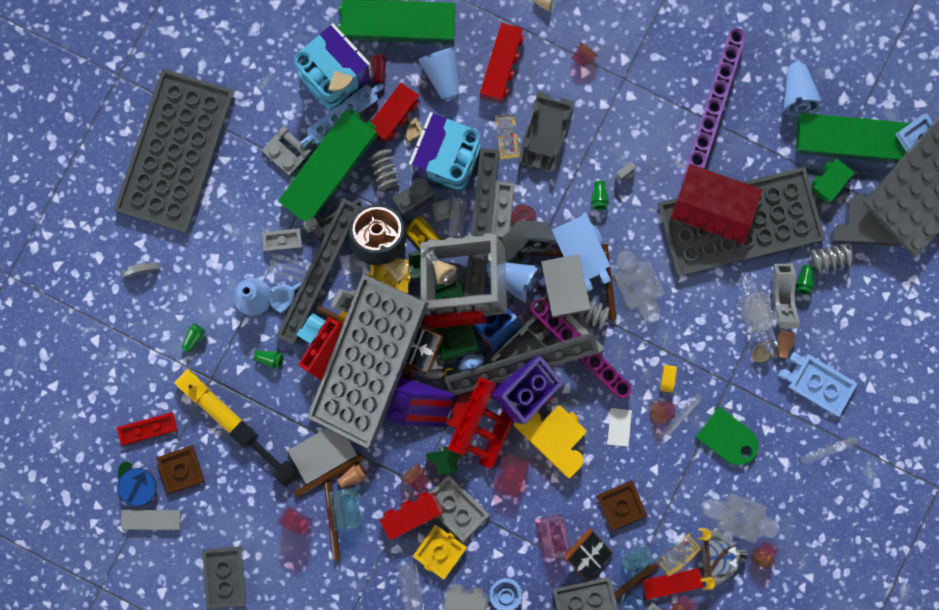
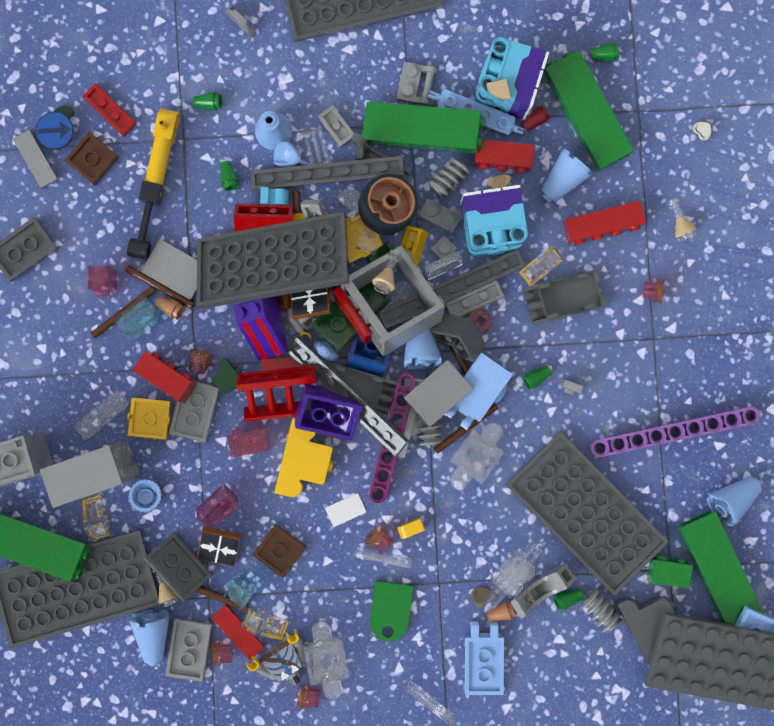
camera: 60 degrees right, 5 degrees up
(716, 203) = (588, 483): dark red slope -> none

